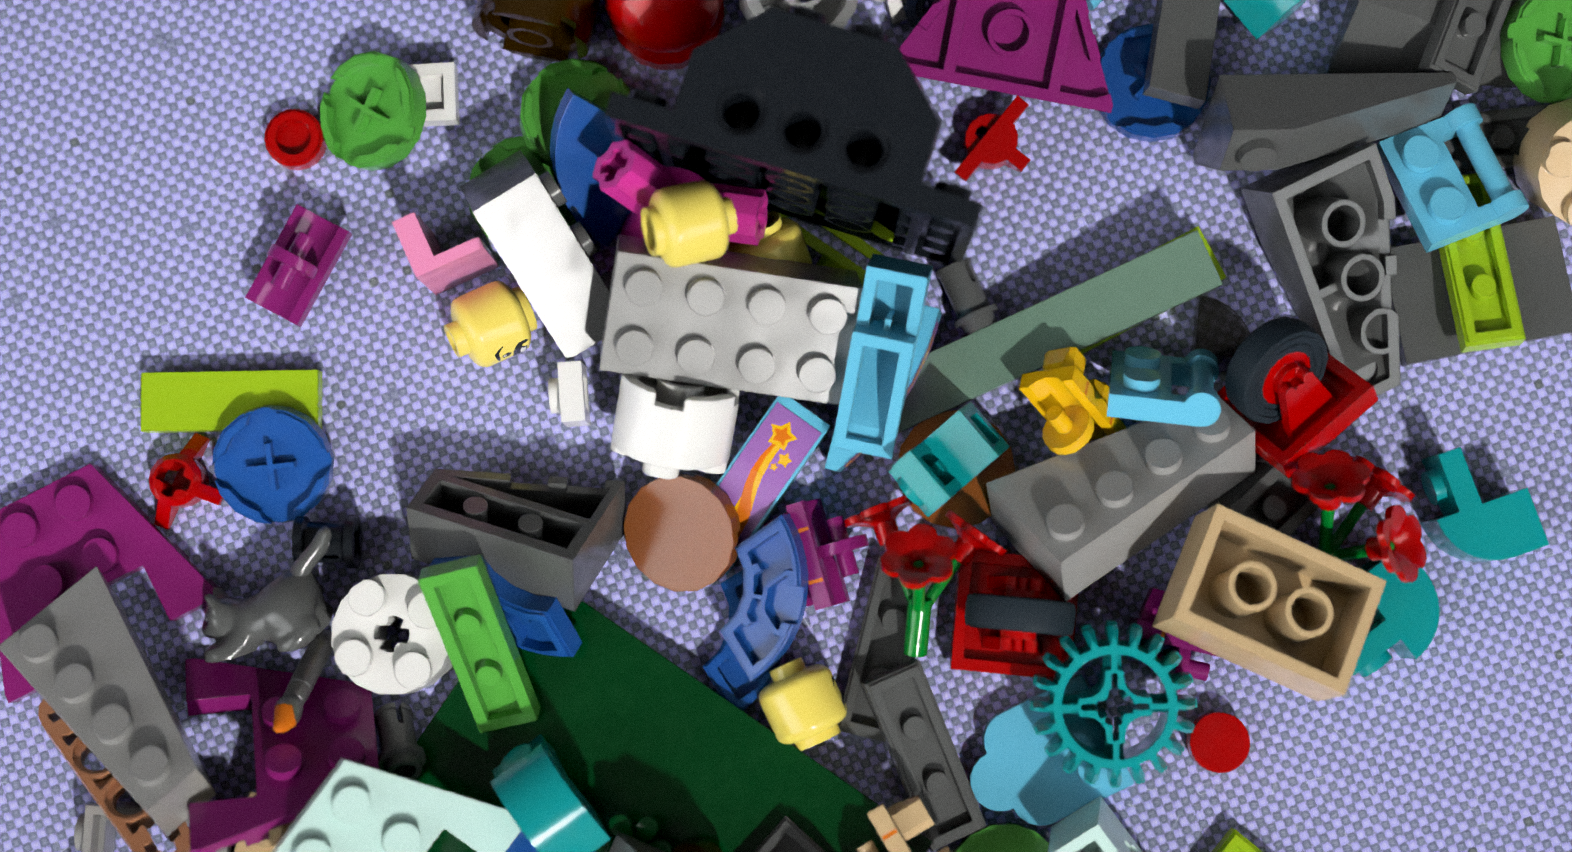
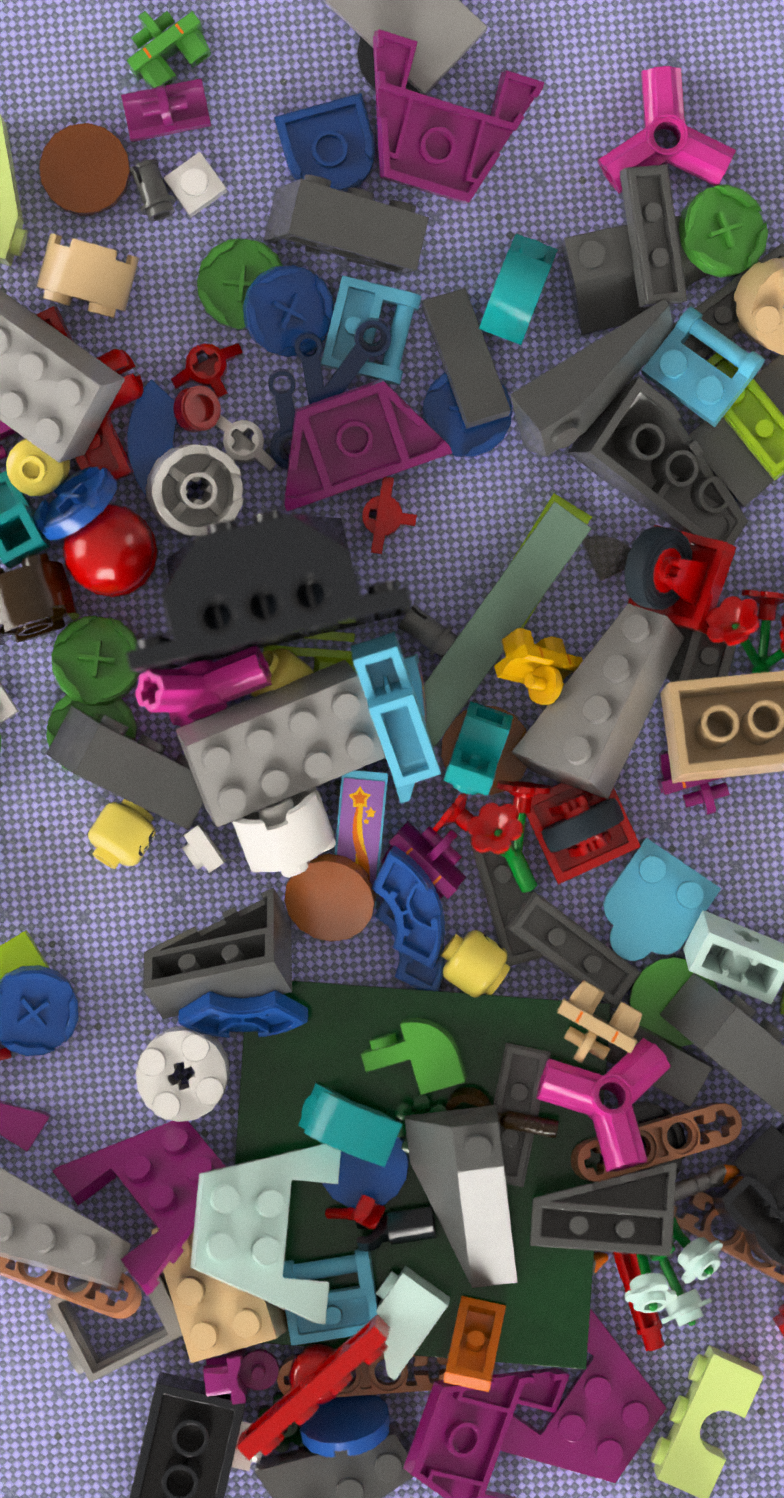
camera: 30 degrees left, 5 degrees up
(284, 612) = (101, 1103): dark grey animal -> none
(290, 707) = (144, 1161): flat silver piece -> none
(344, 544) = (99, 1040): black bush -> none
(398, 741) = (225, 1142): dark grey pin -> none
(440, 269) = (58, 817): bright pink panel -> none
(479, 643) = (243, 1048): bright green plate -> none
(576, 142) = (115, 689): blue tile -> none
(688, 223) = (221, 701): light yellow head -> none
(693, 772) = (429, 1048): none -> bright green brick
(1142, 704) = (656, 858): teal gear -> none
(1143, 387) = (576, 623): medium azure plate -> none
(1218, 742) = (760, 829): red tile -> none

